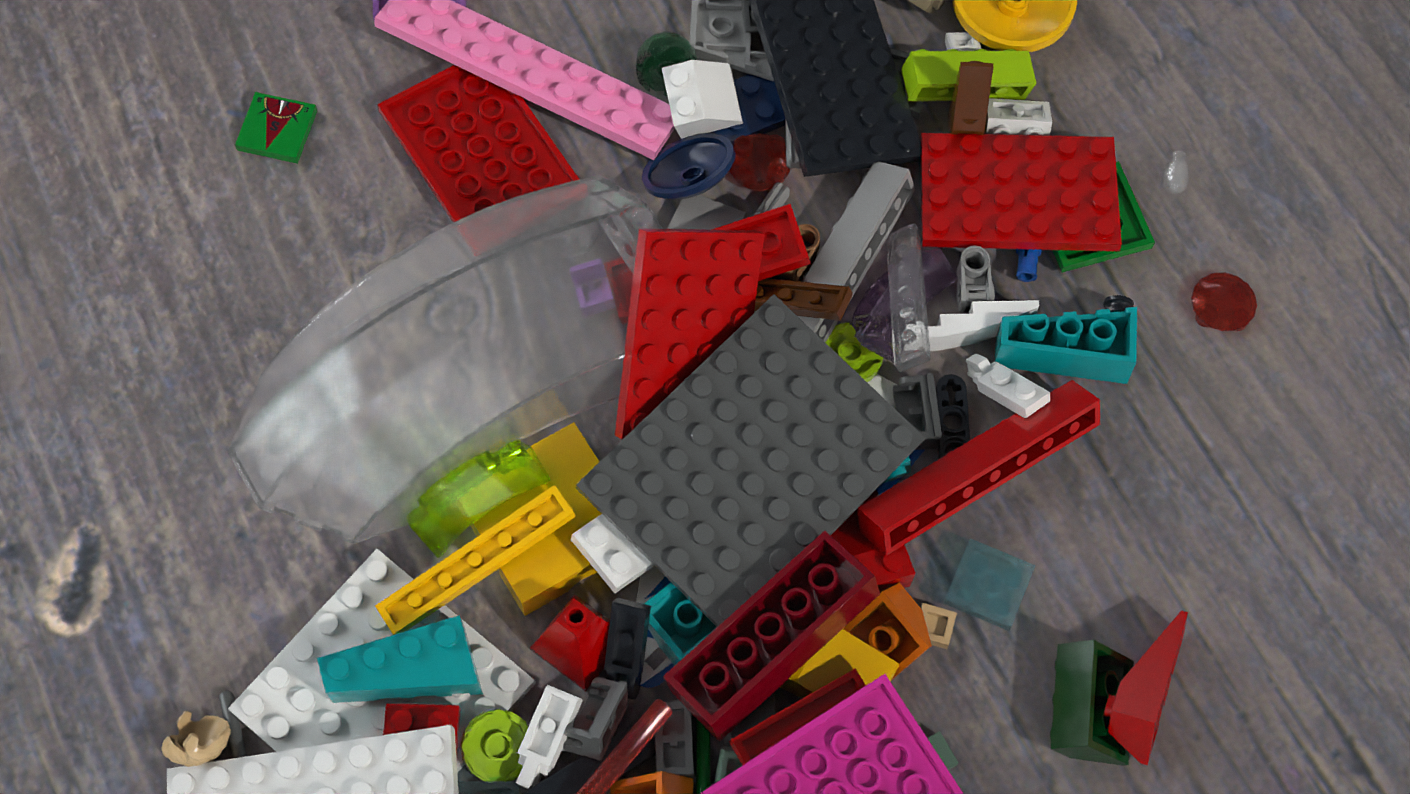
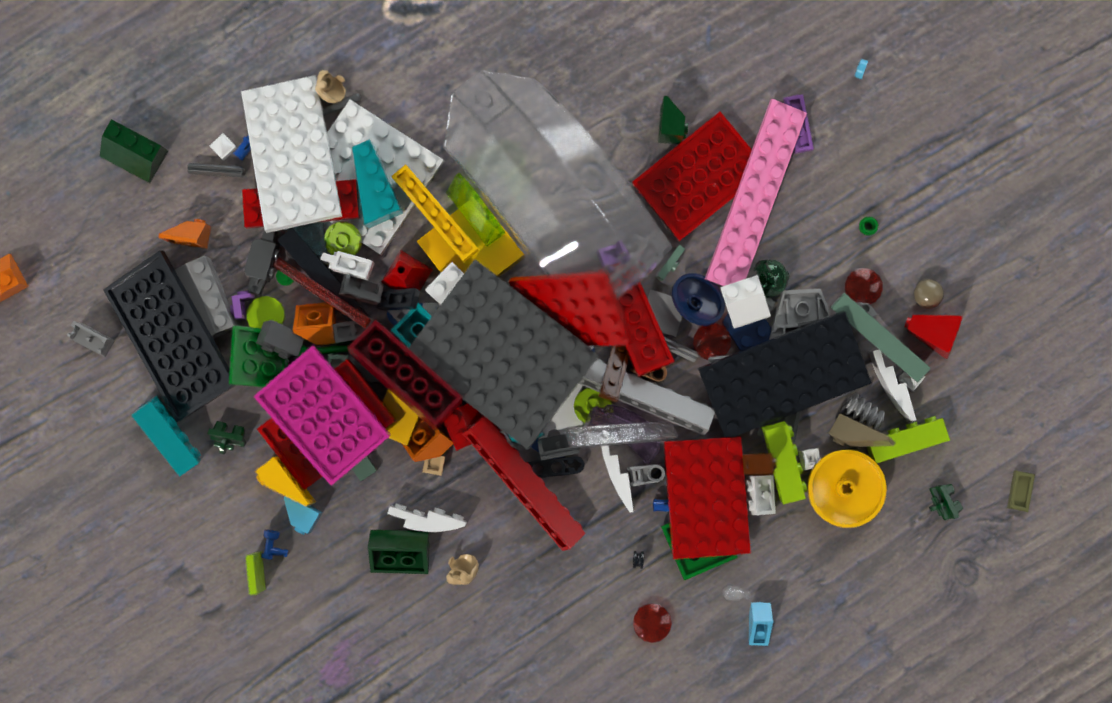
camera: 90 degrees right, 20 degrees up
(276, 127) = (700, 55): green tile -> none
(382, 172) = (672, 123): none -> dark green slope
(989, 584) = (461, 493): clear light blue plate -> none
(1006, 386) = (576, 496): white hinge -> none
(1041, 637) = (434, 522): none -> white slope
(1071, 345) = (609, 533): teal wedge -> none
(1129, 592) = (462, 569): none -> tan hair
(1143, 693) = (397, 575): red wedge -> none
(1225, 141) = (760, 623): none -> medium azure slope

